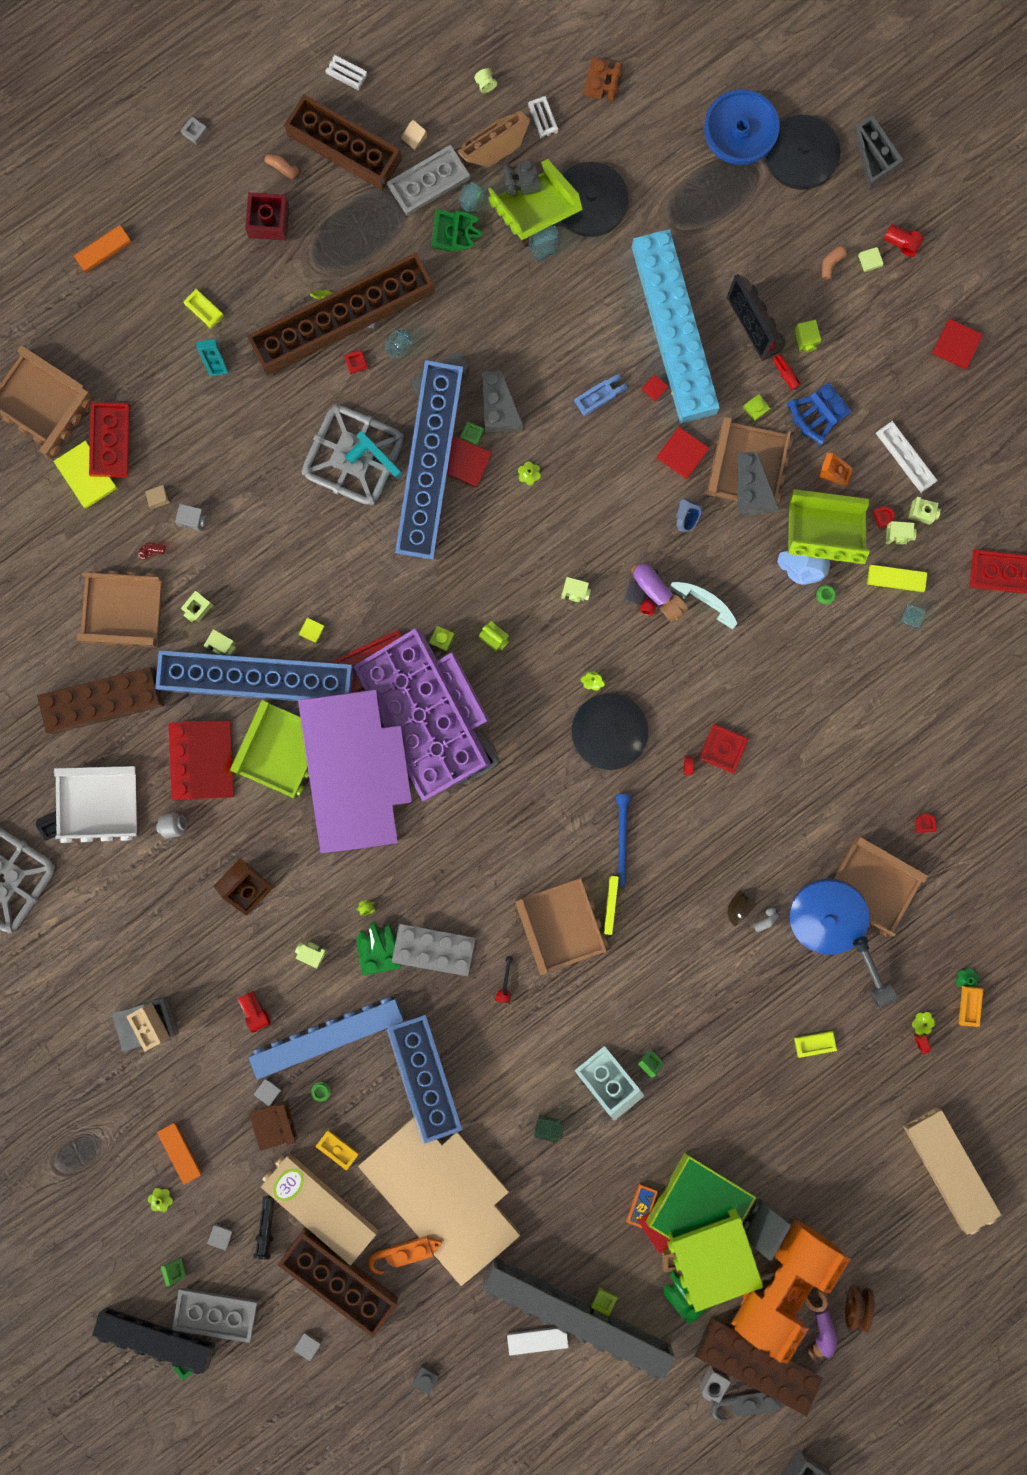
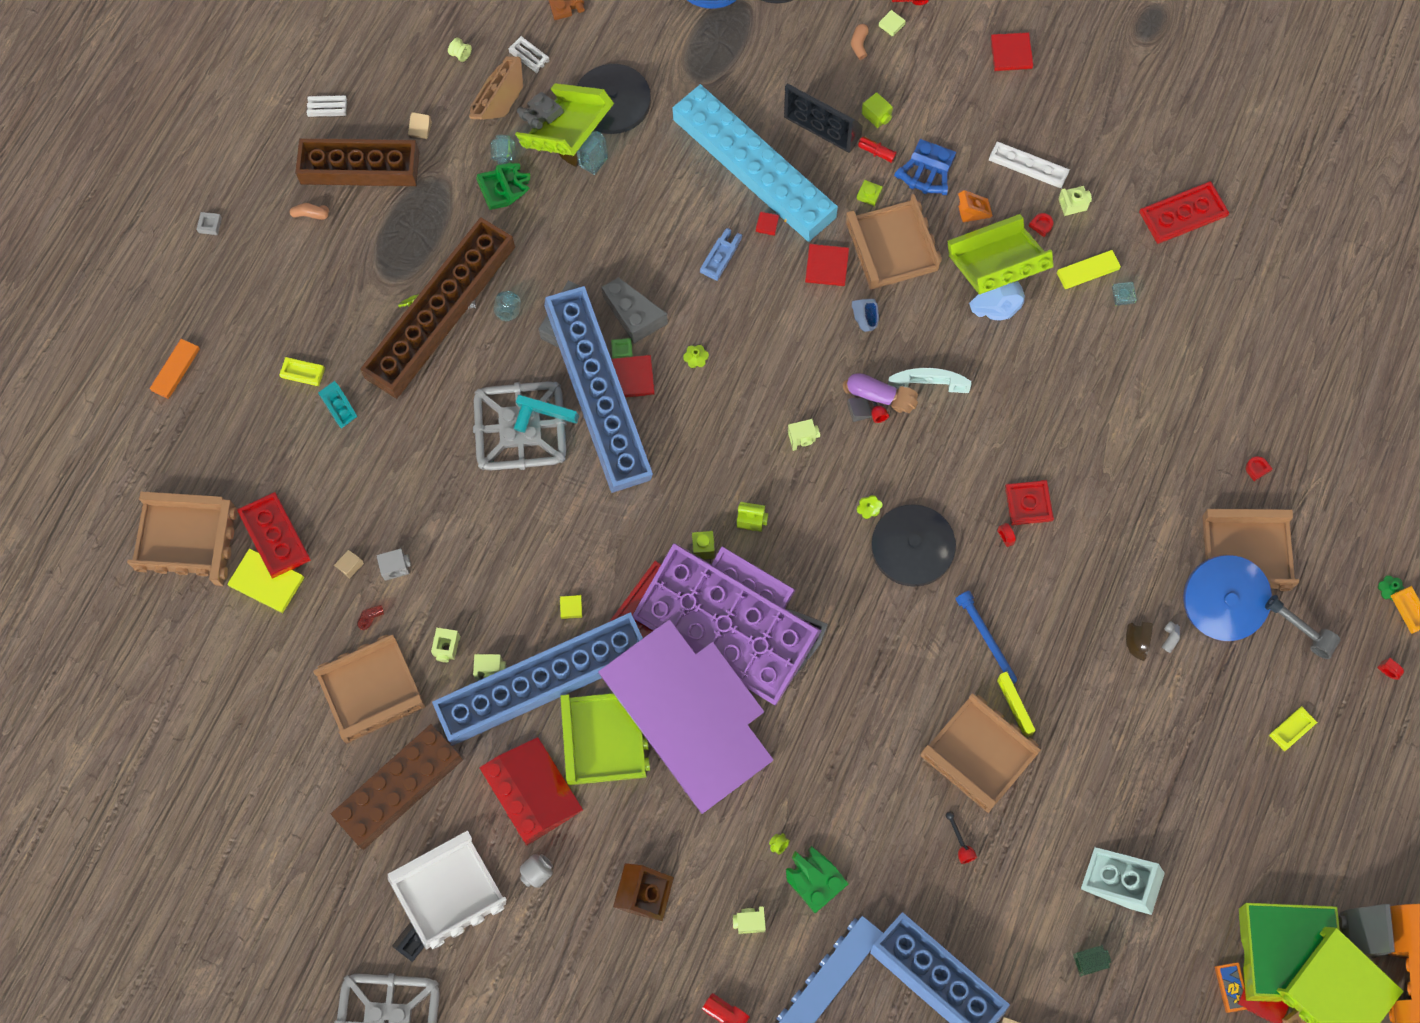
camera: 25 degrees left, 15 degrees down
(267, 216) = (320, 259): dark red brick -> none
(355, 361) = (475, 343): red tile -> none
(428, 180) = (454, 156): light grey plate -> none
(433, 949) = (870, 846): light grey plate -> none
(651, 1063) = (1150, 837): bright green plate -> none
(753, 486) = (912, 255): dark grey wedge -> none
(826, 594) = (1034, 316): bright green plate -> none
(900, 532) = (1065, 228): yellowish green brick -> none
(923, 1023) = (1379, 649): lime plant -> none

